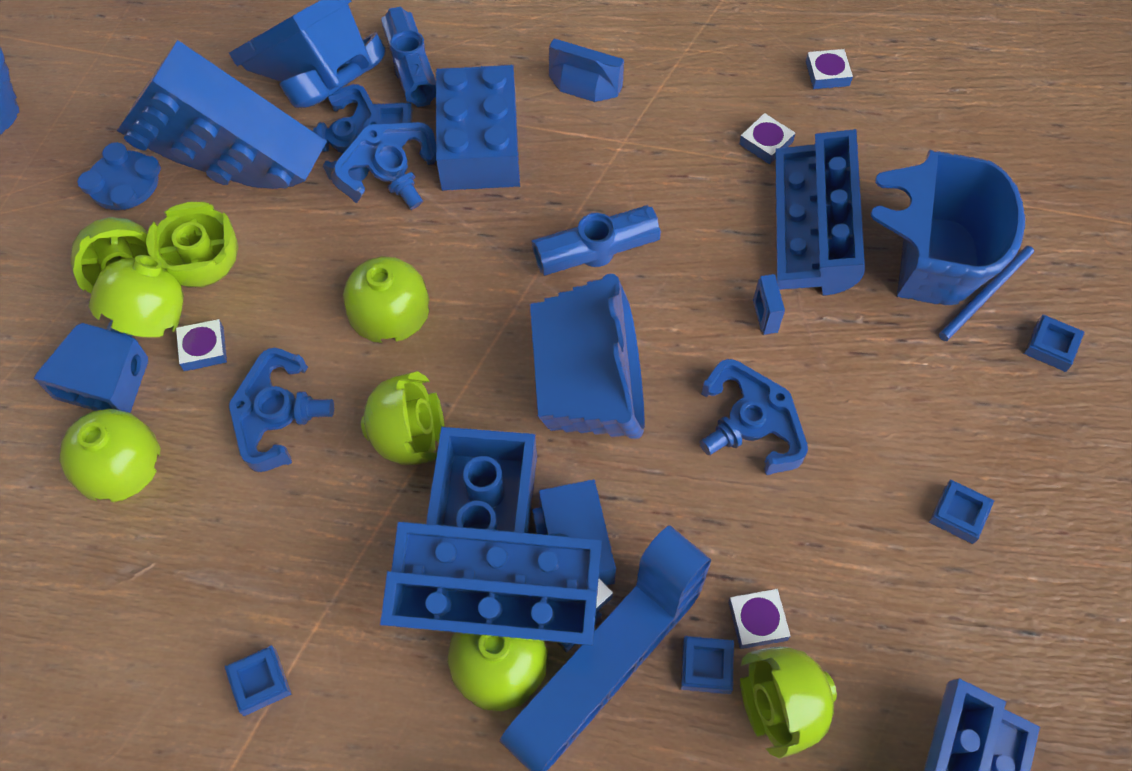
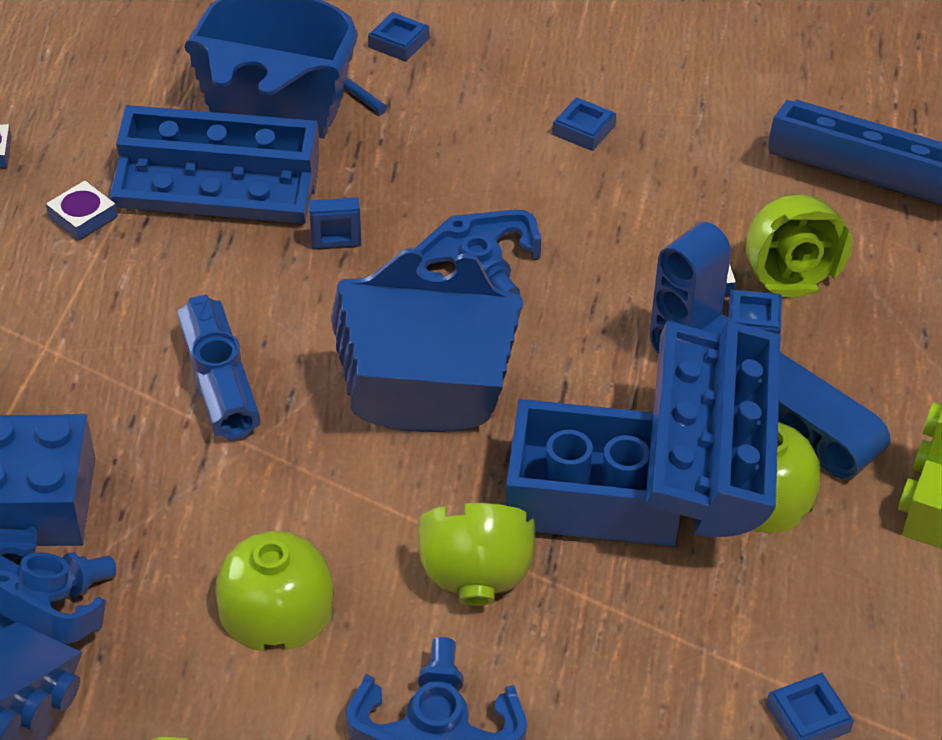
camera: 90 degrees left, 15 degrees down
(576, 513) = (613, 383): blue arch -> none

